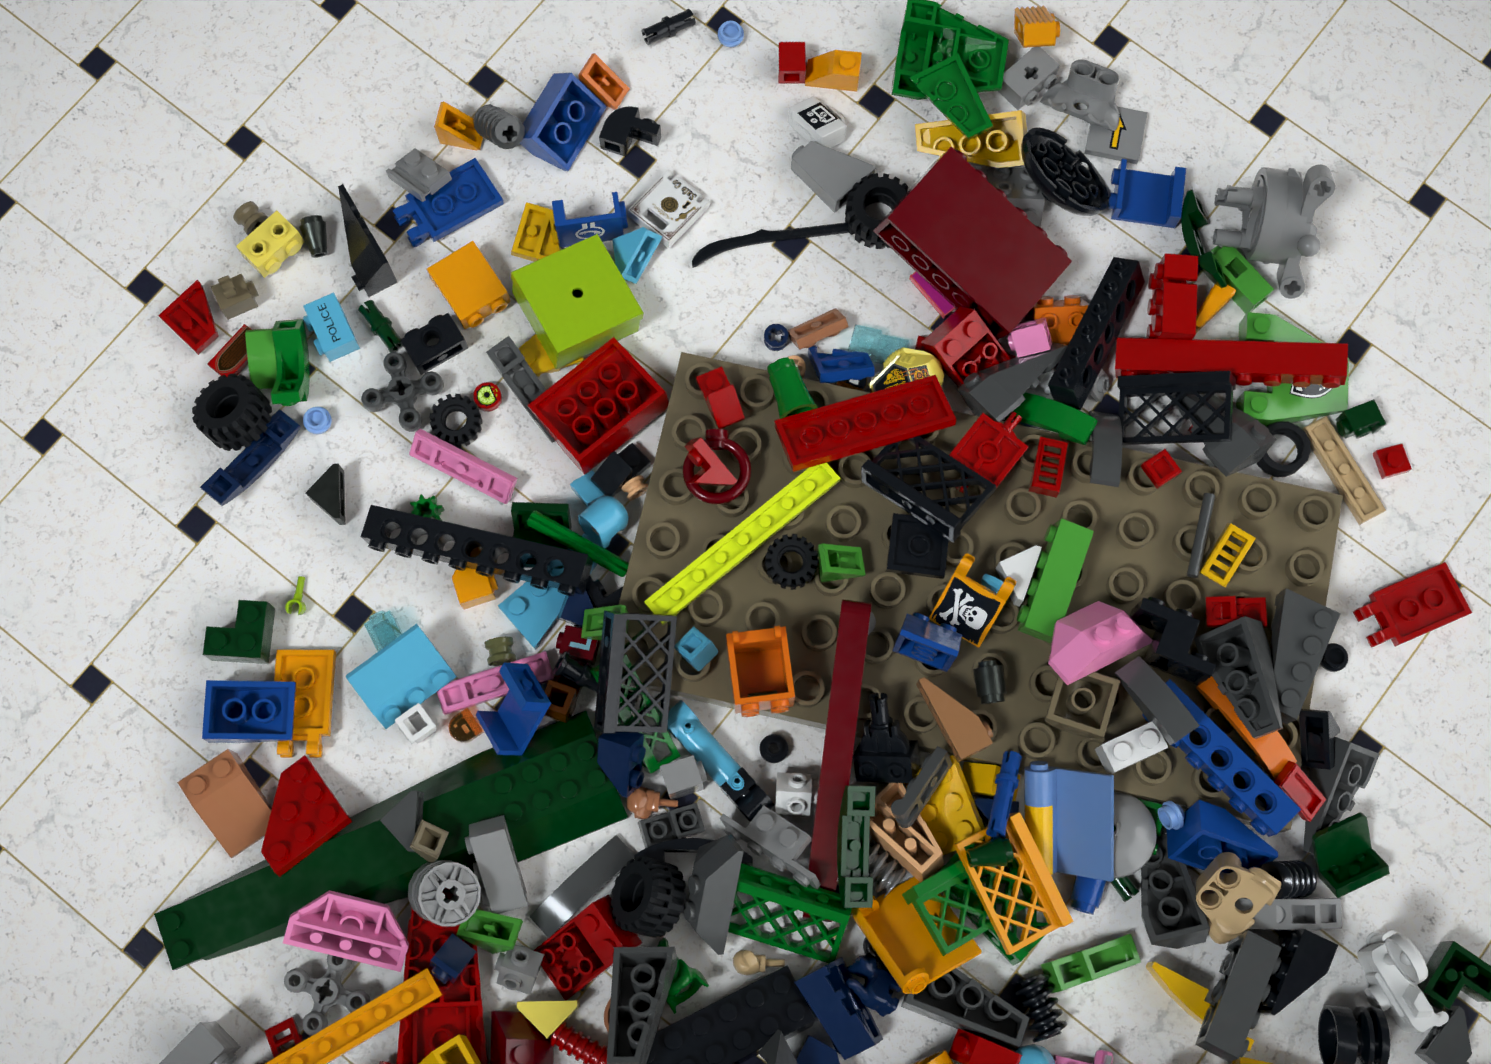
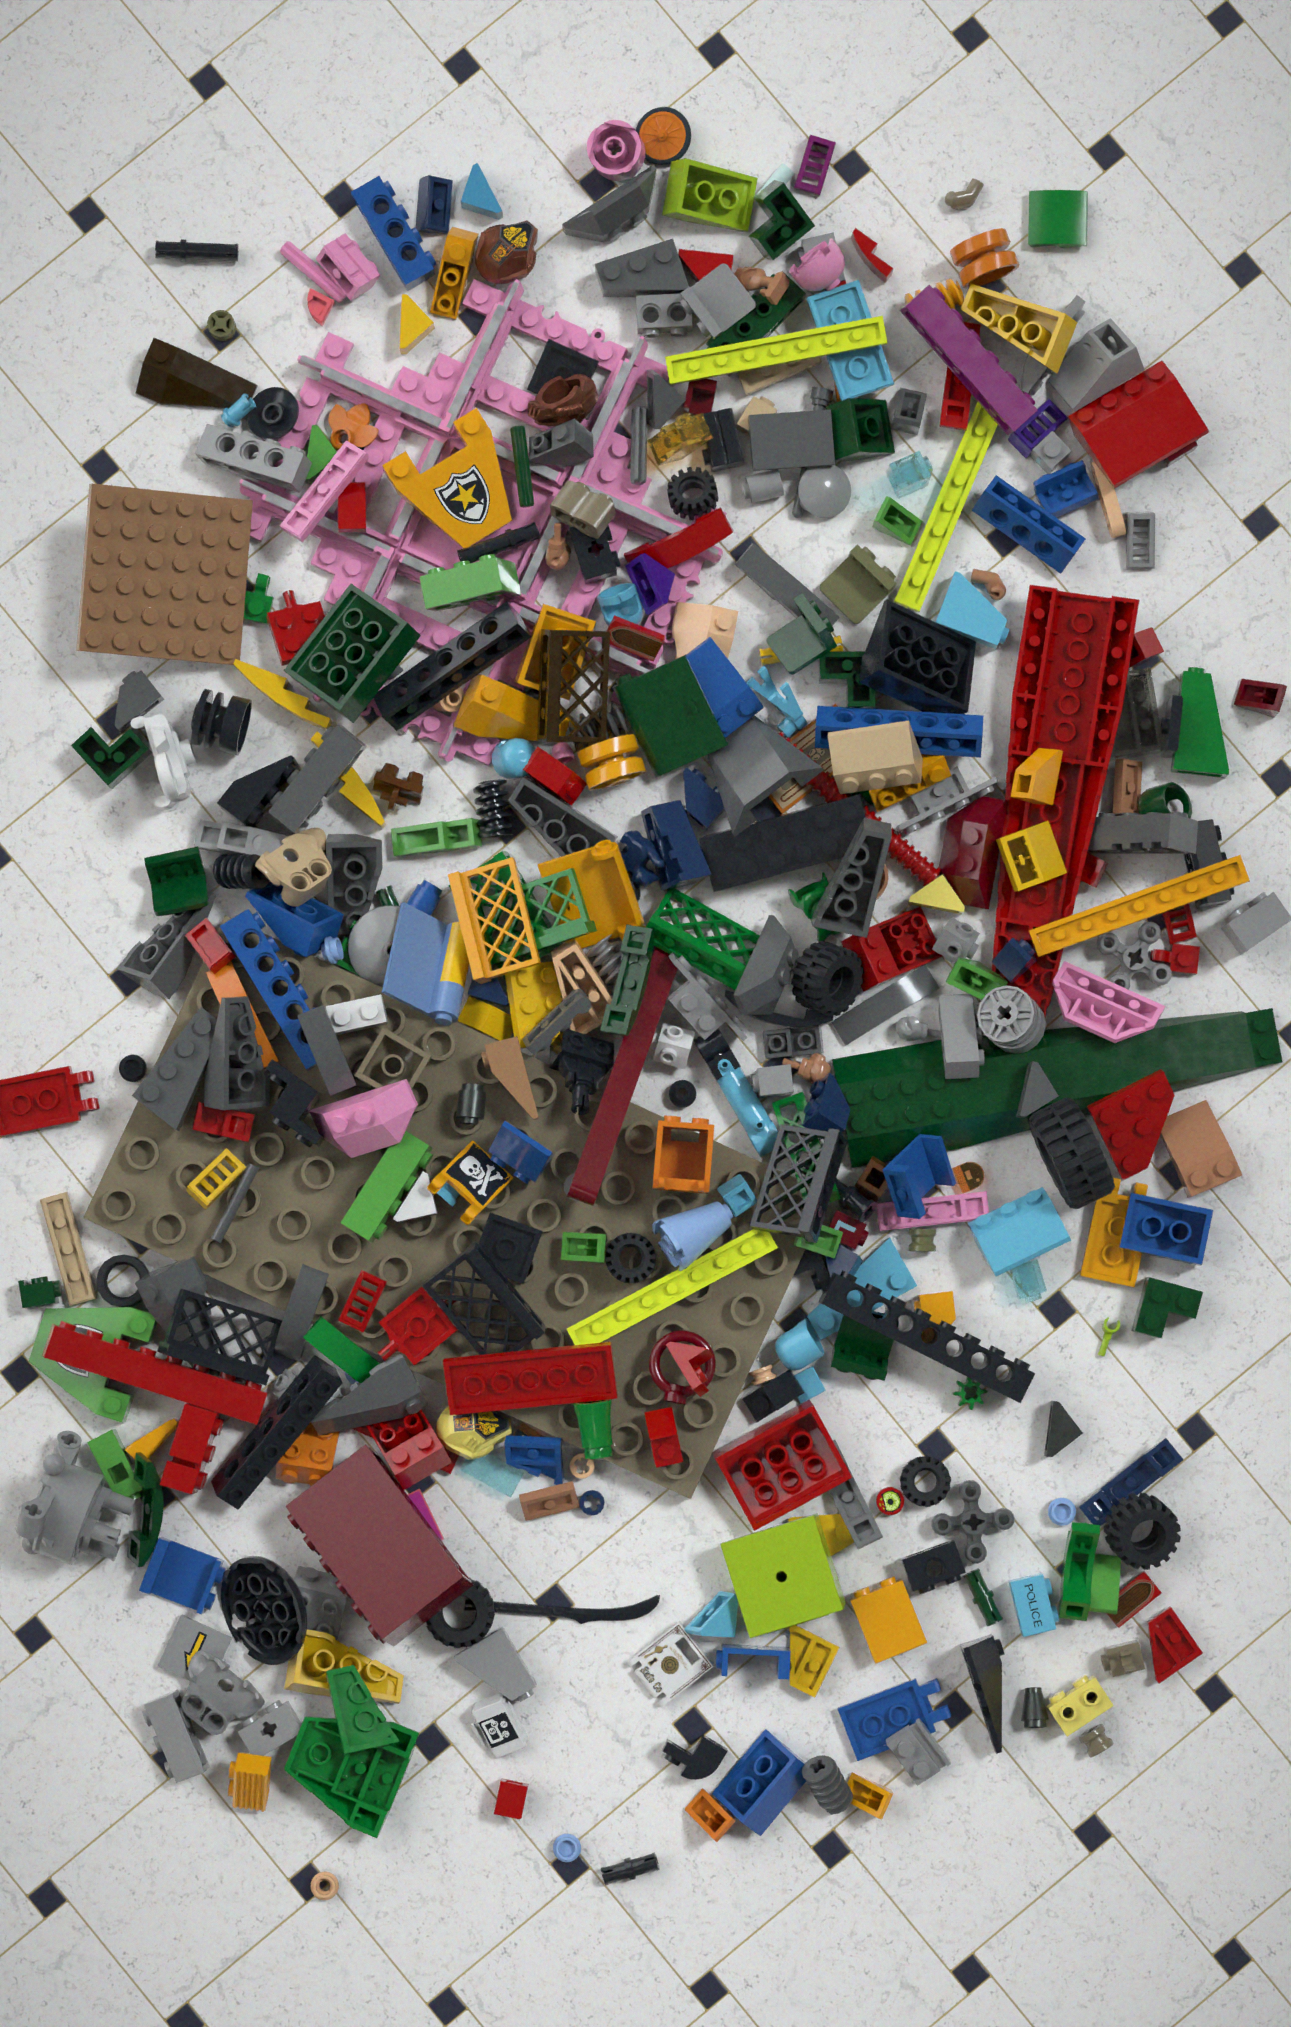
camera: 165 degrees left, 10 degrees up
(278, 1003) = (1180, 958): none -> red plate
(357, 764) = (1071, 1153): none -> black tyre
(415, 724) = (1013, 1183): white brick -> none
(428, 841) = (1017, 1068): dark tan slope -> none
(463, 466) = (926, 1432): bright pink plate -> none
(550, 865) = (911, 1029): none -> light grey piece
(577, 543) = (828, 1326): green axle -> none
(733, 598) = (691, 1232): none -> light blue cone
(748, 963) = (747, 902): tan piece -> none
(834, 70) = (470, 1780): light orange slope -> none
(991, 853) = (510, 946): dark green cone -> none
(1006, 785) = (478, 1008): blue pin -> none
(1030, 337) = (342, 1440): bright pink brick -> none
(1106, 46) = (175, 1737): none -> light grey slope
(1145, 1004) = (398, 790): none -> reddish brown hips
(1161, 468) = (255, 1276): red tile -> none
(1316, 738) = (178, 990): black slope -> none
(1392, 461) = (17, 1247): red plate -> none

